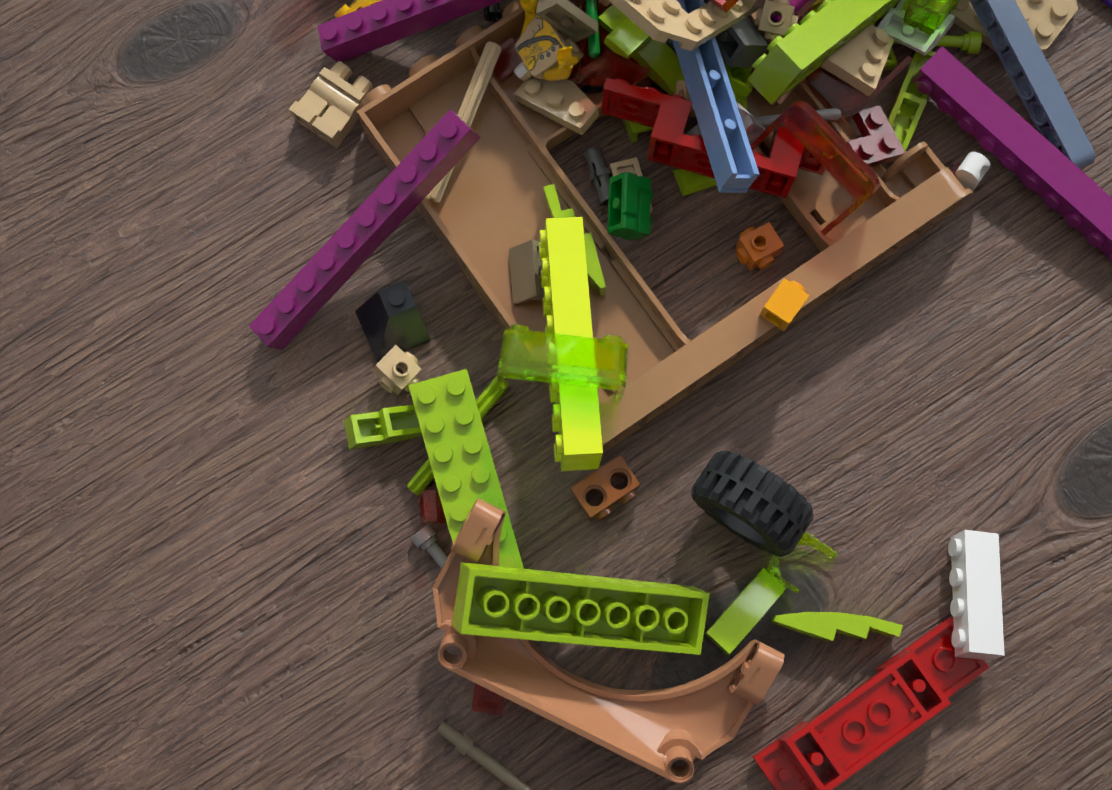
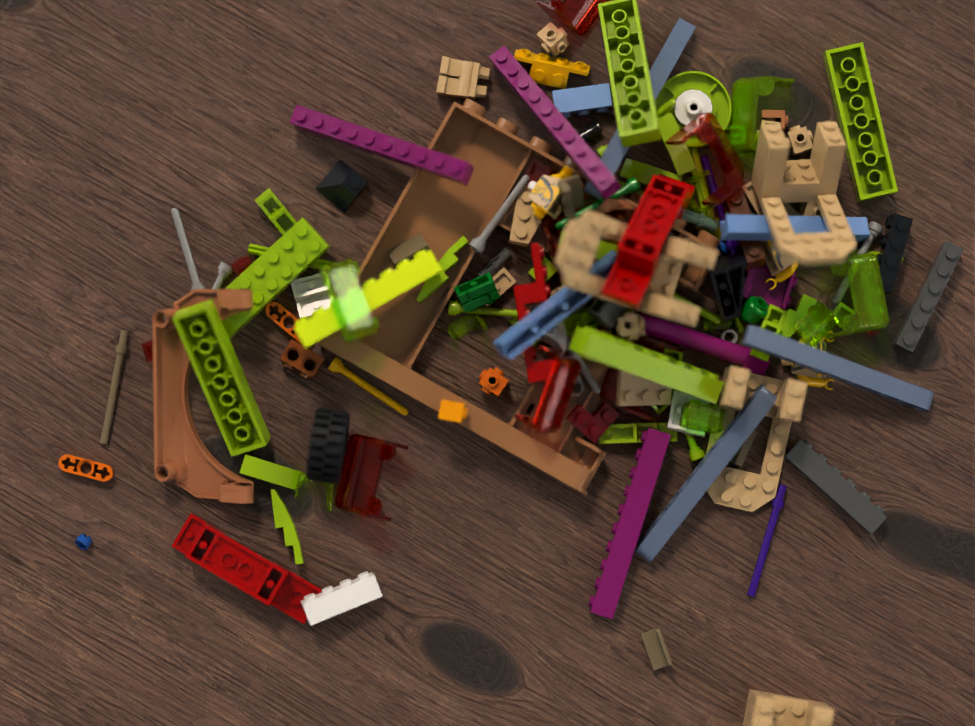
camera: 65 degrees right, 10 degrees up
(371, 580) = (186, 250): none -> light grey piece
(396, 361) = (313, 197): tan brick -> none
(471, 102) = (504, 164): tan axle -> none
(521, 488) = (274, 317): none -> orange beam
(522, 433) = (310, 294): none -> white slope
(564, 171) = (479, 243): none -> light grey piece
(635, 250) = (456, 308): none -> lime piece
(638, 446) = (338, 367): none -> yellow piece
(661, 247) = (466, 325): none -> clear neon green helmet
(834, 503) = (362, 473): none -> clear red windscreen
(971, 170) = (600, 486): white leg -> none

